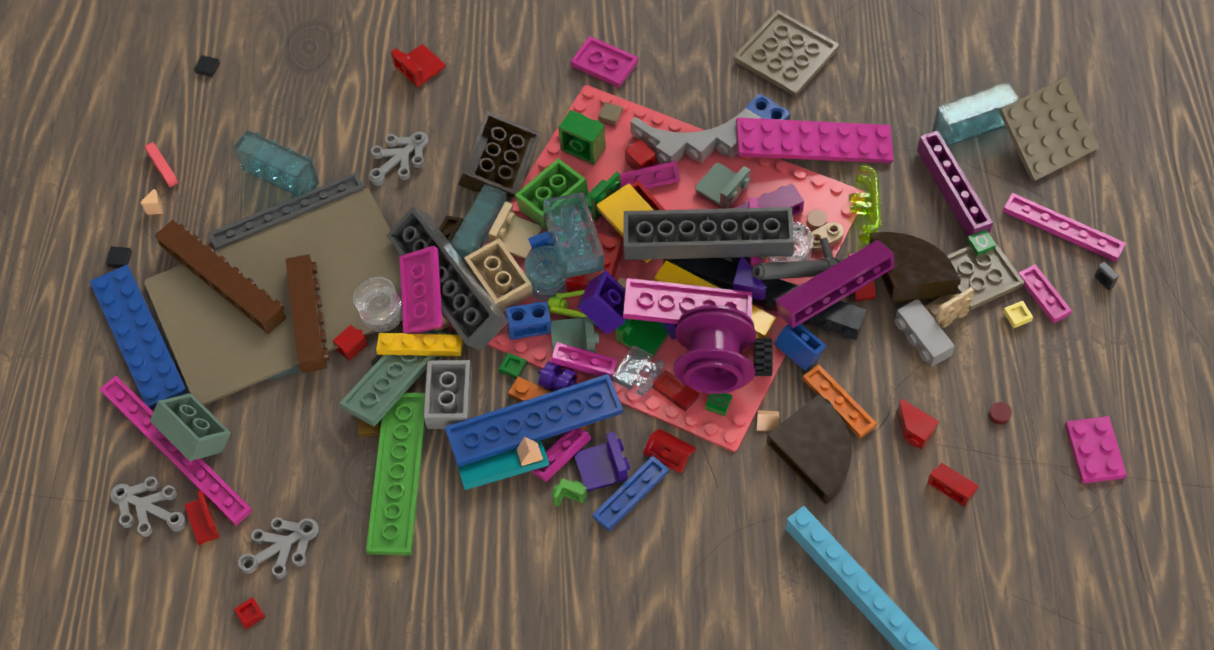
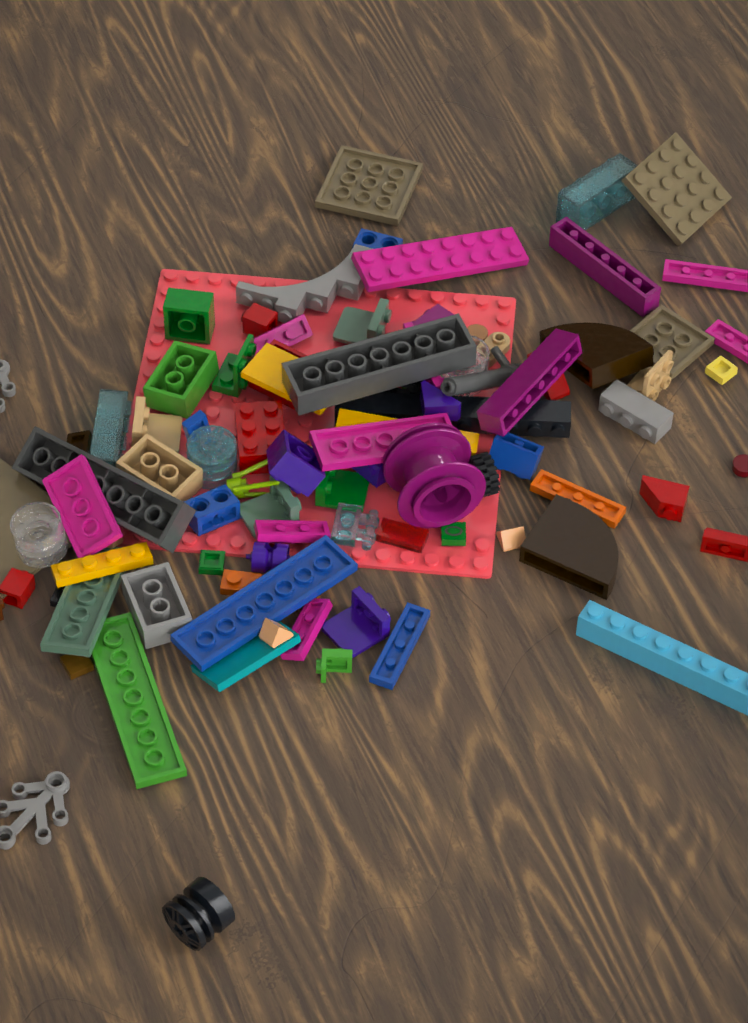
camera: 25 degrees left, 10 degrees down
(249, 613) = (28, 886): red tile -> none
(499, 155) = (99, 357): dark brown slope -> none
(573, 235) = (233, 404): clear light blue brick -> none
(604, 61) = (173, 240): dark pink plate -> none
(610, 113) = (206, 285): dark tan tile -> none
(669, 450) = (421, 593): red panel -> none
(868, 202) = (523, 303): clear neon green piece -> none
(981, 242) = (656, 311): tile -> none

